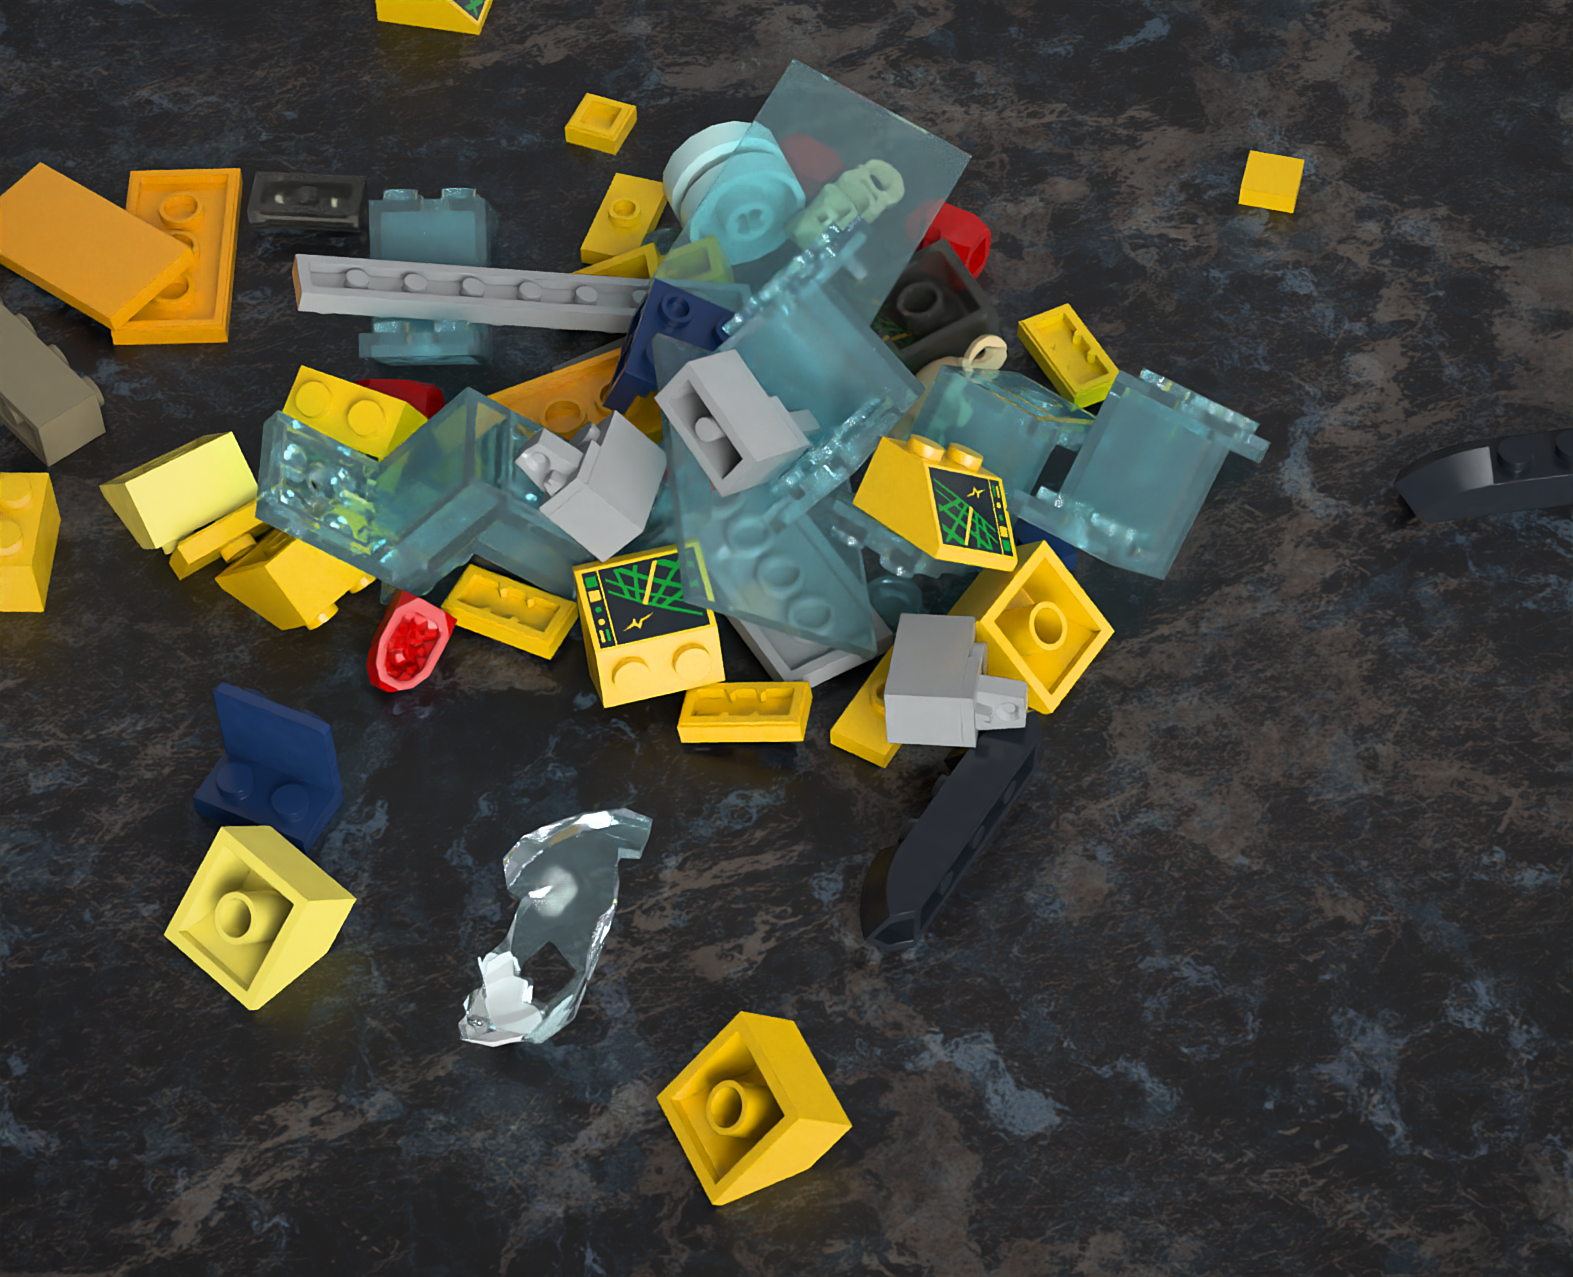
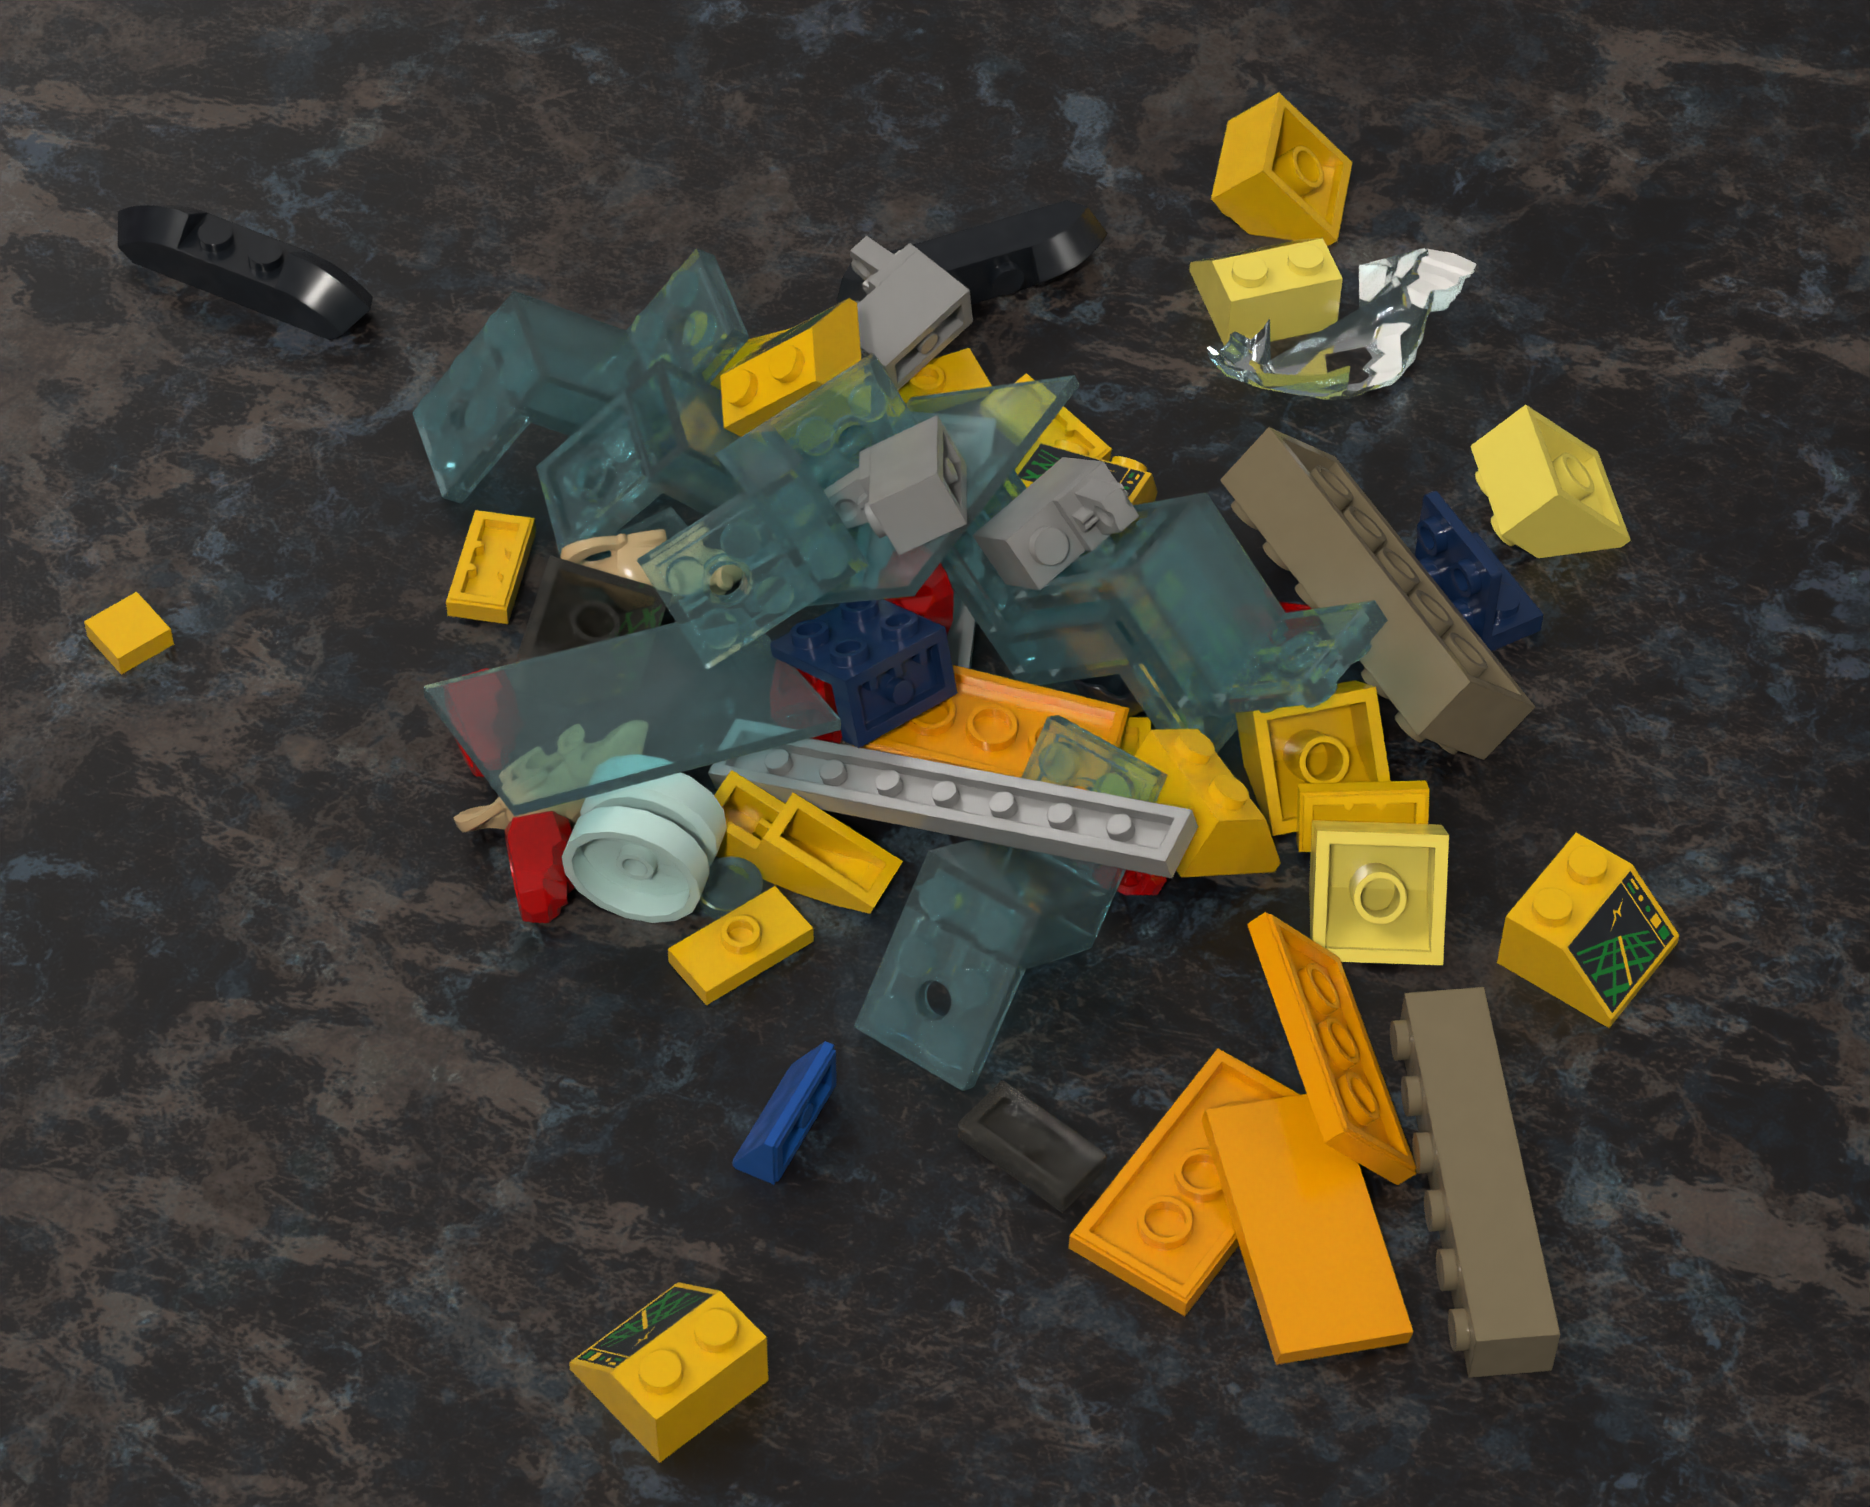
camera: 145 degrees left, 0 degrees up
(131, 336) = (1332, 1049): none -> light orange tile
(383, 690) = (1348, 553): none -> dark tan brick
(493, 138) = (788, 1115): none -> blue slope
(600, 123) = (661, 1078): yellow tile -> none
(675, 975) = (1285, 282): none -> light yellow slope

